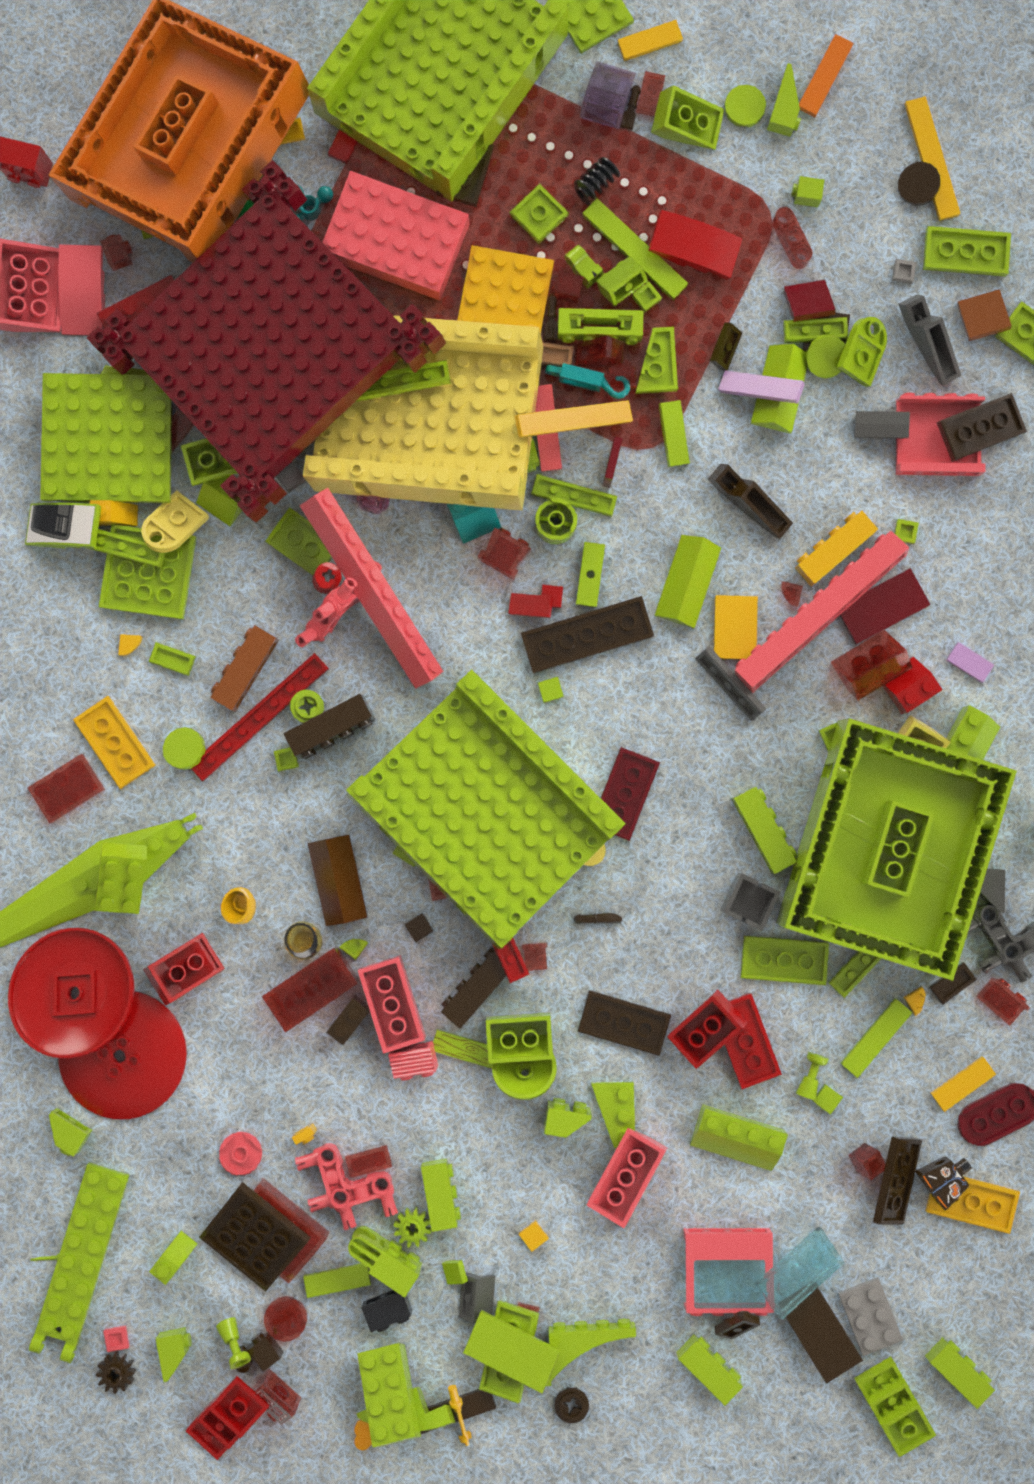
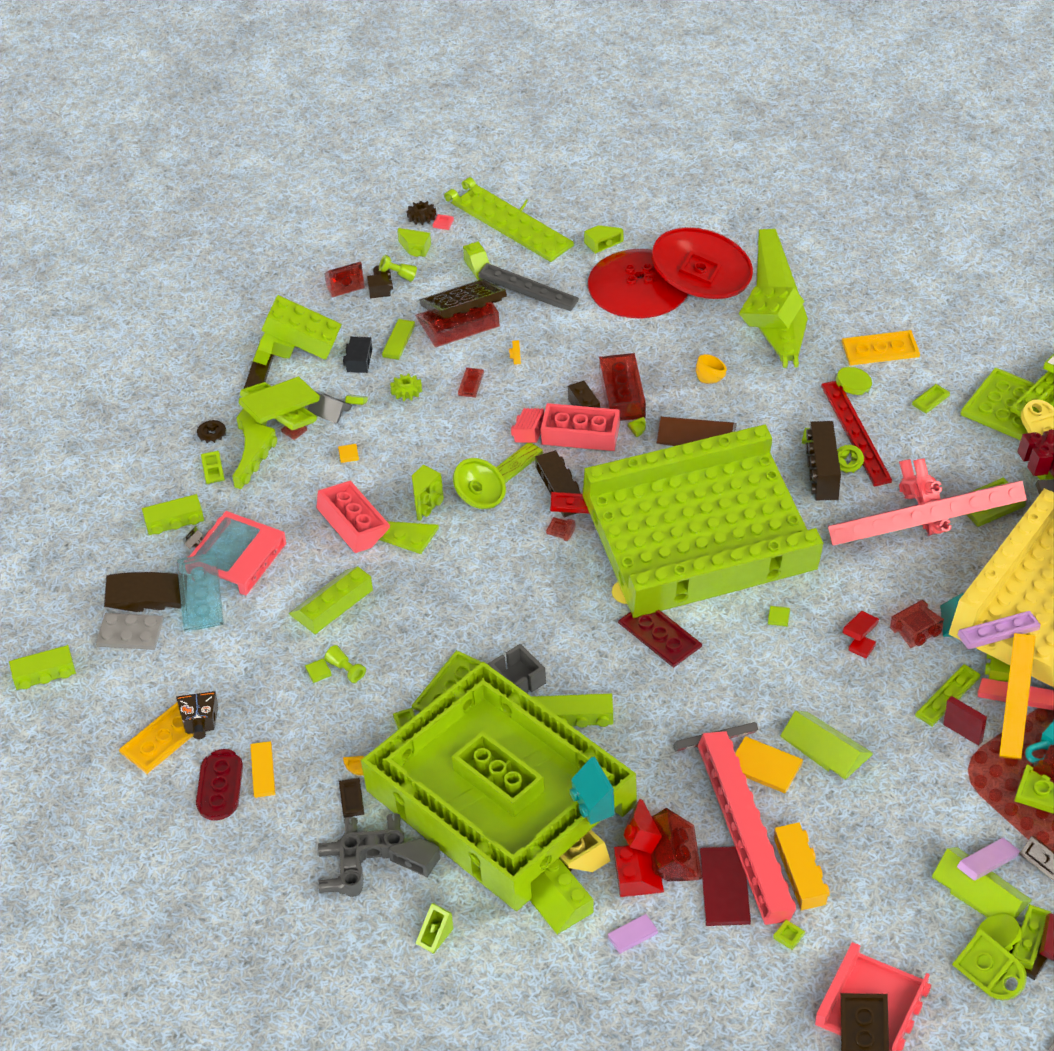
camera: 120 degrees right, 40 degrees down
(66, 788) = (858, 312): clear red plate -> none
(128, 644) = (956, 378): yellow tile -> none
(183, 969) = (681, 326): red slope -> none
(190, 1177) = (528, 287): none -> dark grey tile
(227, 1417) = (350, 250): red slope -> none
(240, 1153) = (530, 320): coral tile -> none
(244, 668) = (900, 432): dark orange brick -> none
(285, 1318) = (392, 303): clear red tile -> none
(303, 940) = (661, 398): clear yellow piece -> none
(319, 580) = (951, 484): red piece -> none
(336, 1181) = (459, 358): coral pin -> none
(385, 1259) = (394, 358): lime brick -> none
(440, 1194) = (418, 408): lime brick -> none
(456, 1403) = (265, 366): yellow piece -> none
(519, 1038) = (505, 489): lime slope -> none
(520, 453) = (998, 630): none -> lavender tile
(553, 509) = (929, 665): lime brick -> none
(587, 634) = (814, 656): dark brown plate -> none
(591, 562) = (868, 677): lime tile -> none
(599, 918) = (573, 566): dark brown piece -> none
(621, 1370) = (212, 467): none -> lime slope
(624, 1022) = (471, 564): dark brown tile -> none
(674, 433) = (973, 784): lime tile -> none
(707, 1029) = (432, 600): red brick -> none
(750, 500) = (879, 815): dark brown slope -> none
(750, 1047) = (403, 633): red plate -> none
(791, 592) = (775, 818): clear red tile -> none
(867, 1161) = (251, 669): clear red brick -> none
(876, 1037) = (344, 723): lime tile -> none
(877, 699) = (641, 829): none -> red slope
(882, 424) = (905, 952): dark grey piece -> none
(895, 1406) = (51, 618): lime slope -> none
(897, 1180) = (233, 688): dark brown tile -> none
(905, 739) = (593, 792): none -> teal slope
(931, 338) = (979, 1031): dark grey slope -> none
(1002, 1000) = (312, 827): clear red bracket -> none

